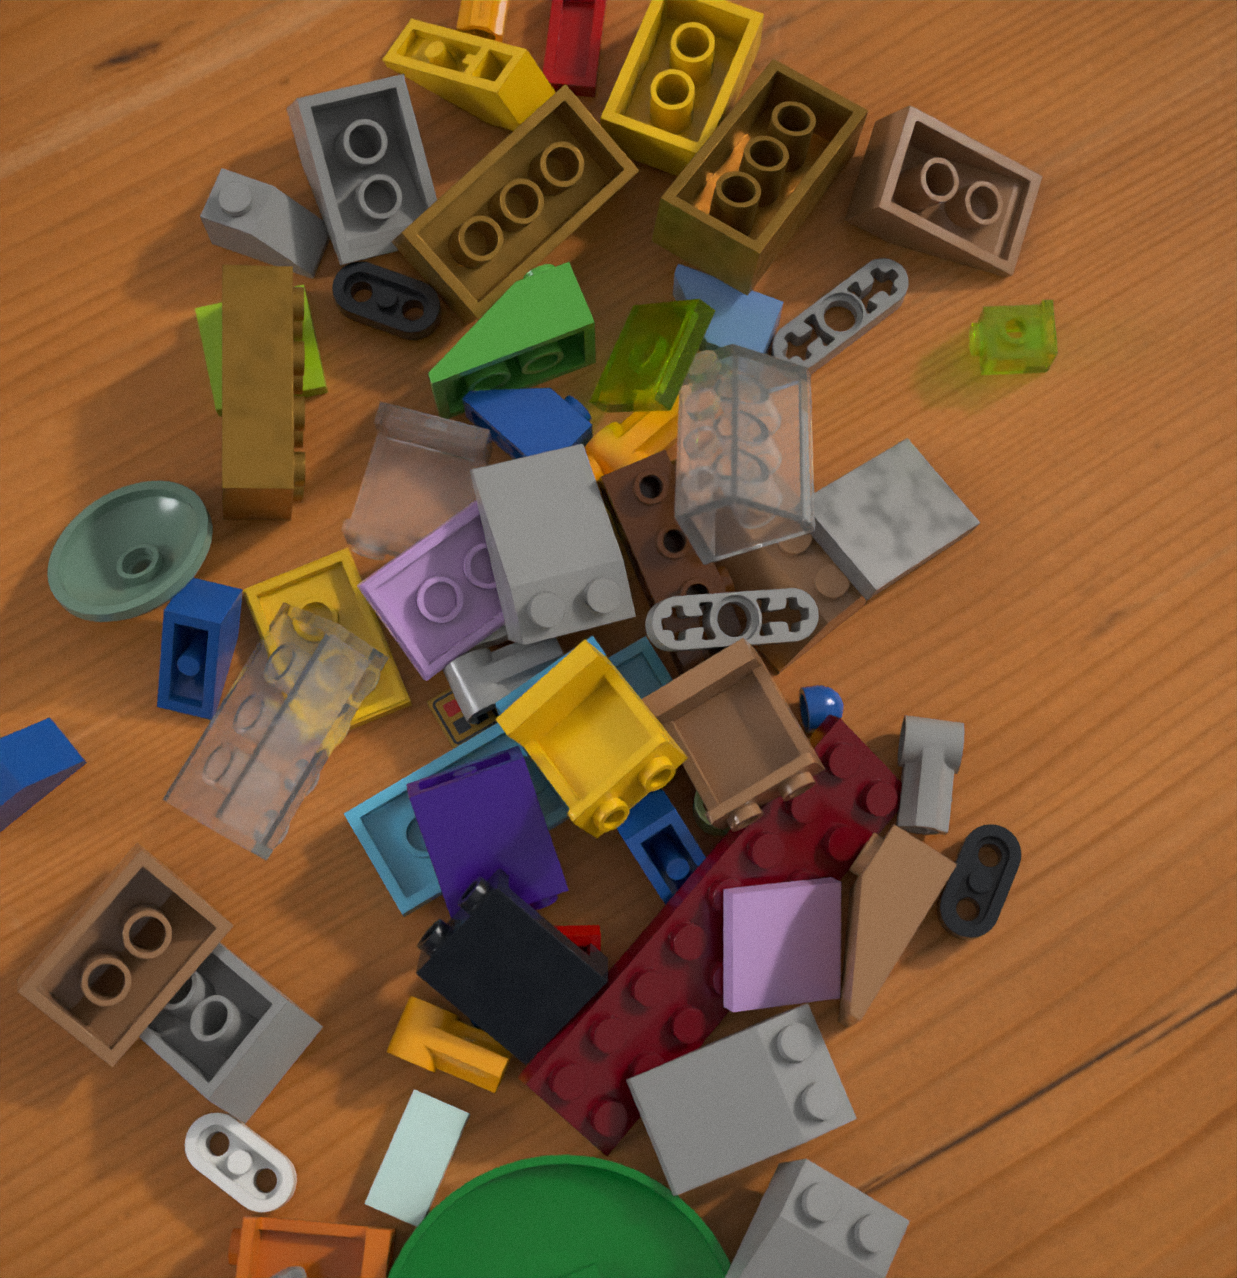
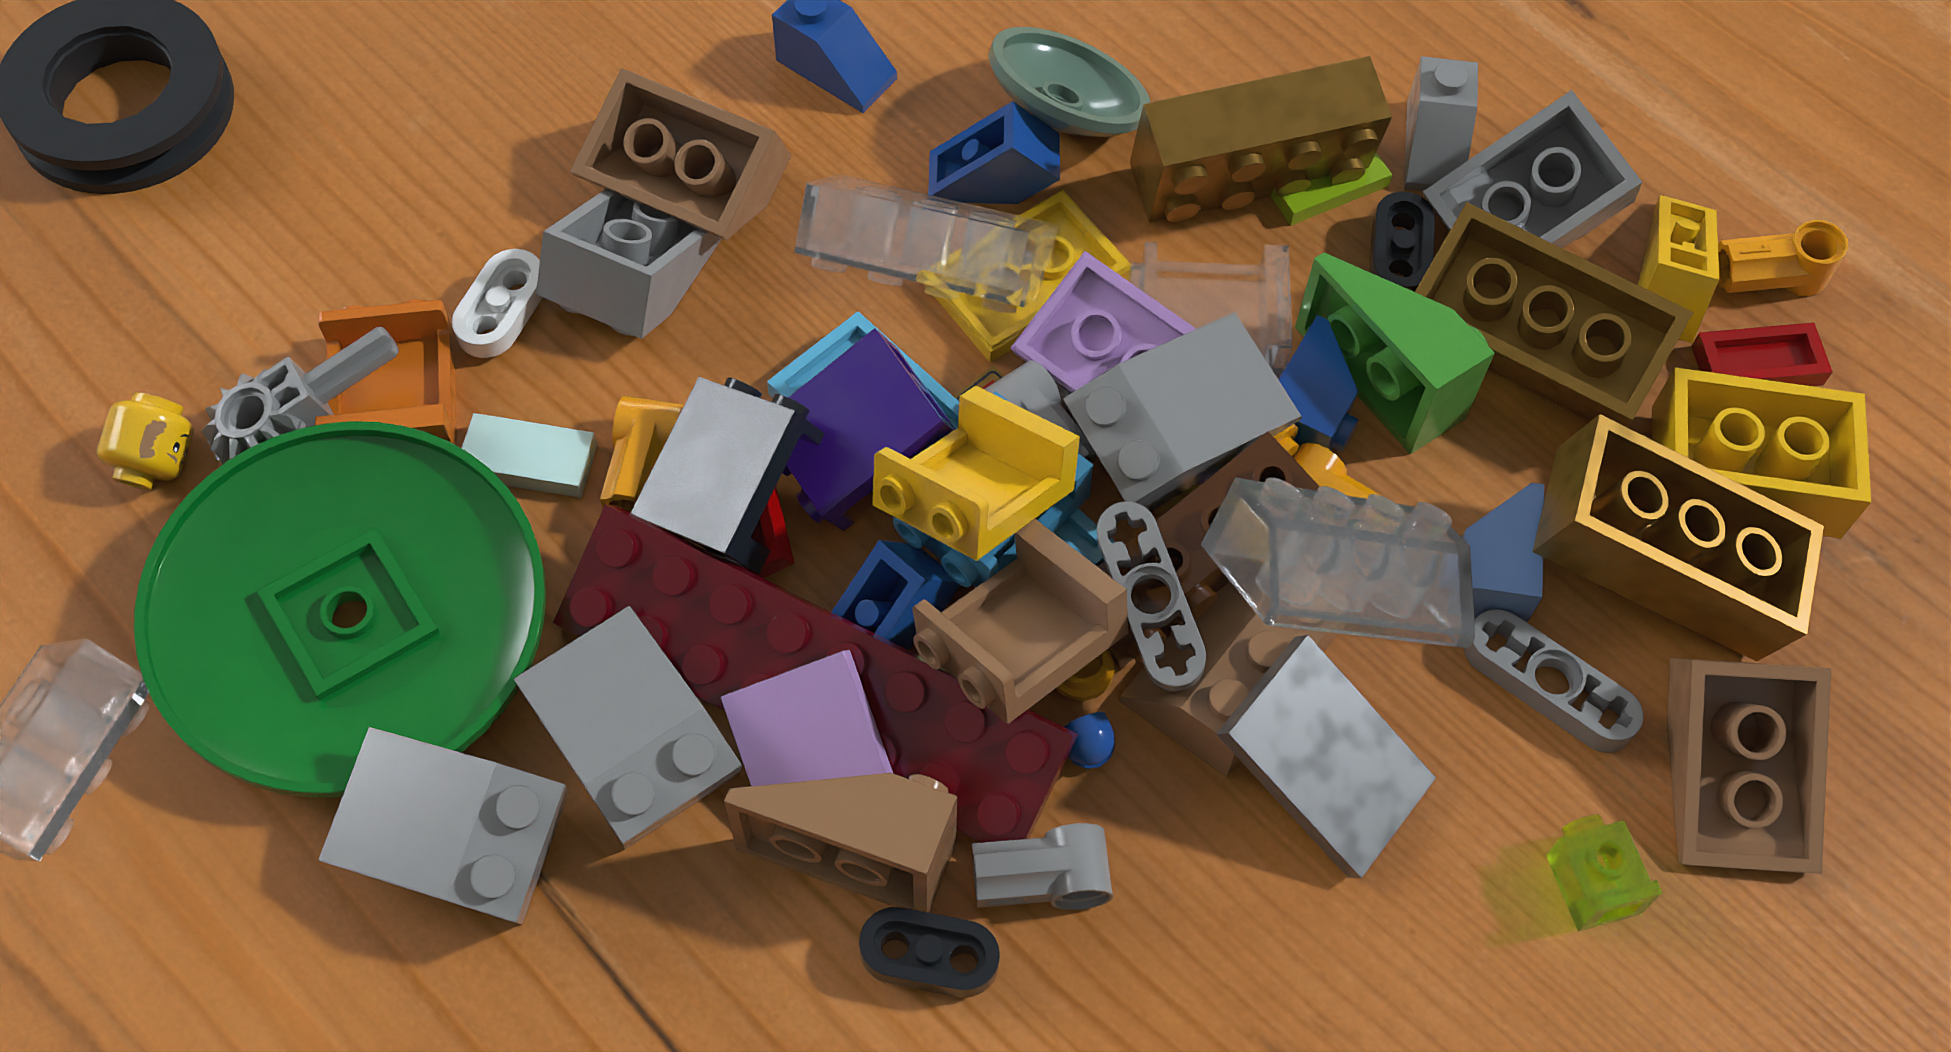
camera: 75 degrees right, 15 degrees down
(652, 356) = (1430, 482): clear neon green tile -> none

